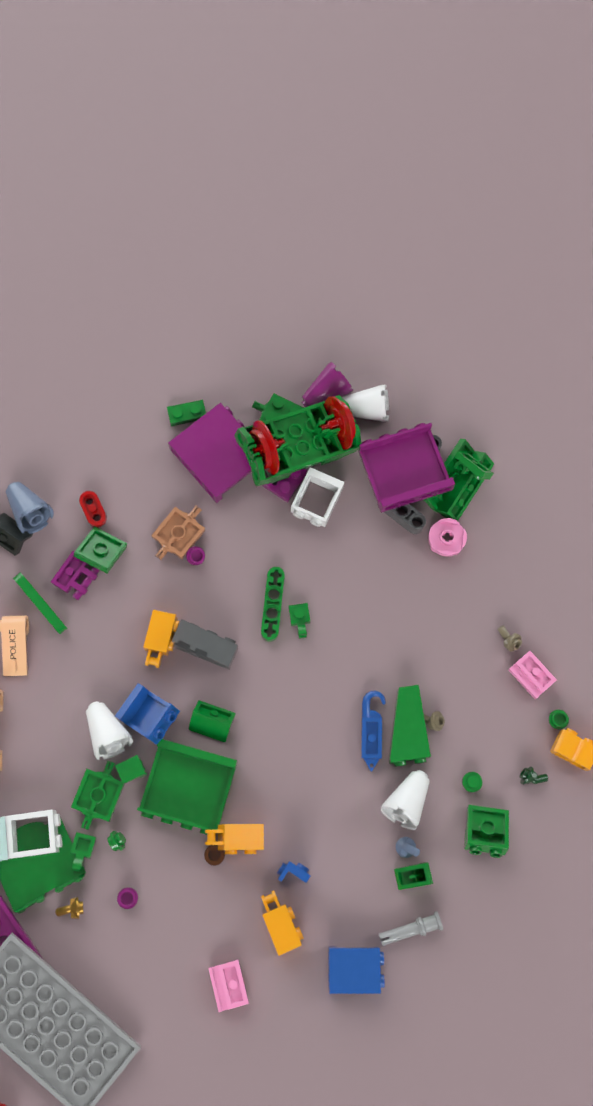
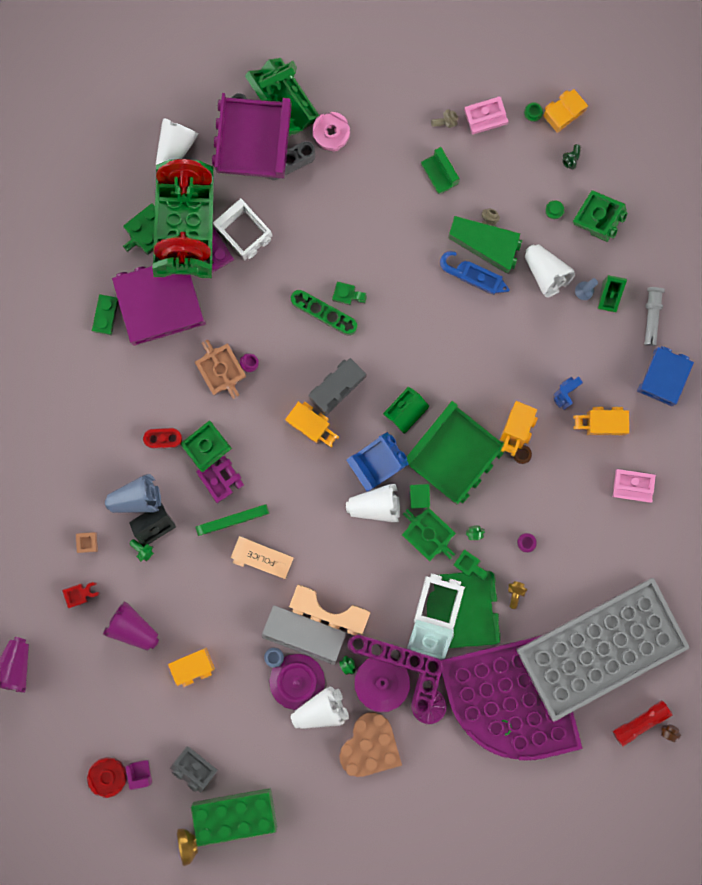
camera: 55 degrees left, 10 degrees up
(325, 385) = (141, 174): magenta cone -> none
(457, 654) = (440, 171): none -> green panel

